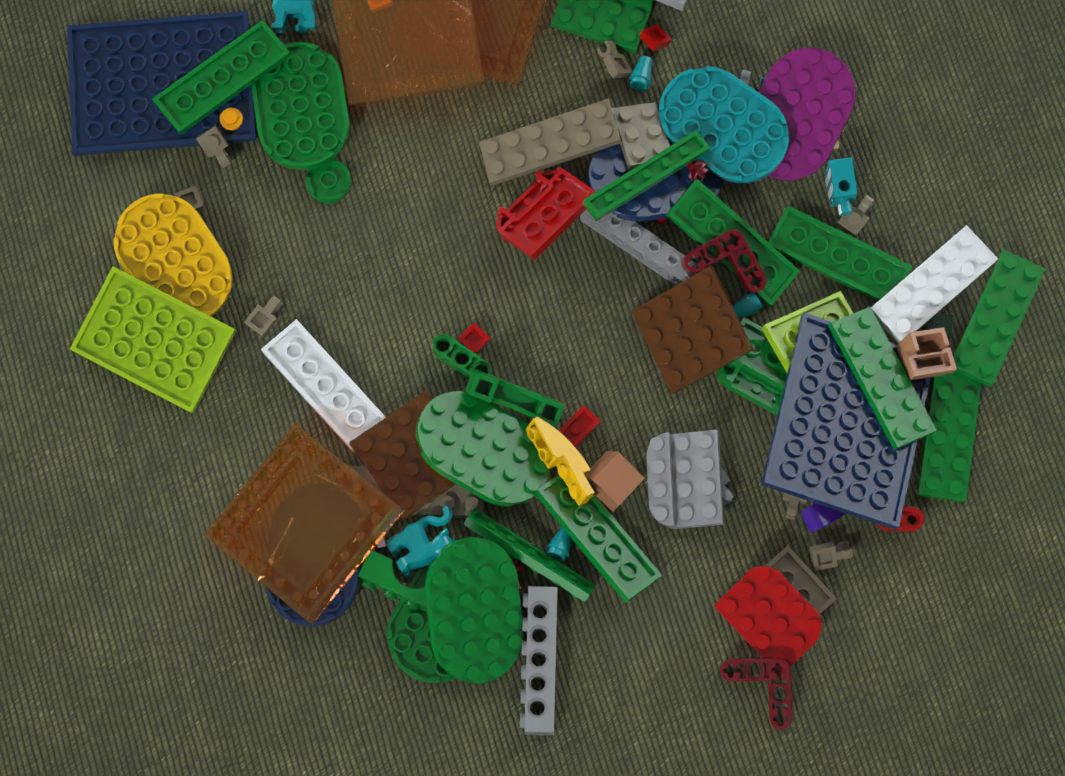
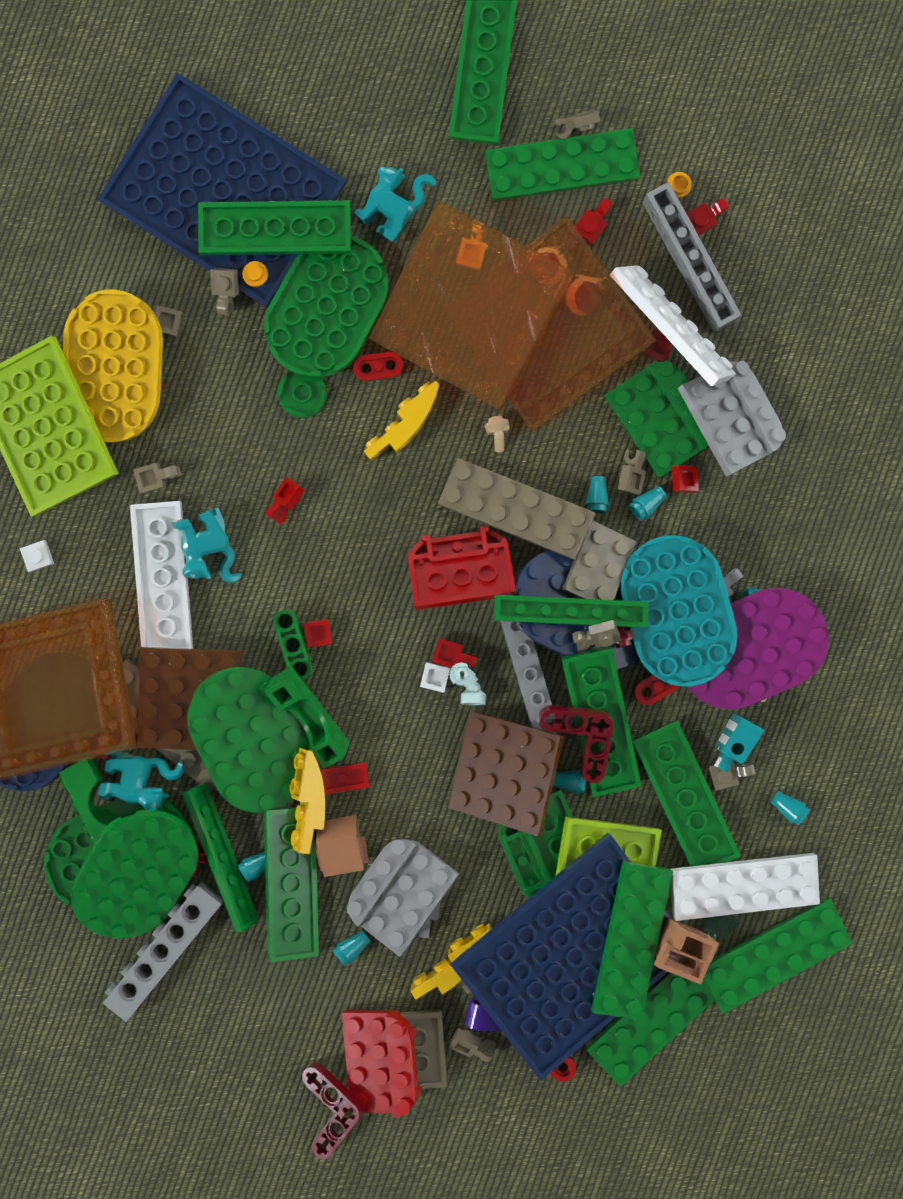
camera: 40 degrees right, 15 degrees up
(216, 441) = (36, 556): none -> white plate
(341, 330) = (205, 542): none -> teal animal
(369, 121) = (378, 366): none -> red plate
(373, 259) = (285, 498): none -> red plate
(423, 143) = (413, 416): none -> yellow slope
(490, 99) = (497, 426): none -> tan plate
(584, 282) = (450, 653): none -> red plate
(586, 306) = (435, 677): none -> white plate
(601, 92) = (597, 495): none -> teal cone
(609, 288) = (463, 676): none -> light aqua arm
(681, 176) = (600, 634): none -> dark tan plate
(681, 551) = (351, 947): none -> teal cone
(752, 195) = (657, 688): none -> red plate
(768, 514) = (443, 974): none -> yellow slope
(919, 207) = (791, 808): none -> teal cone

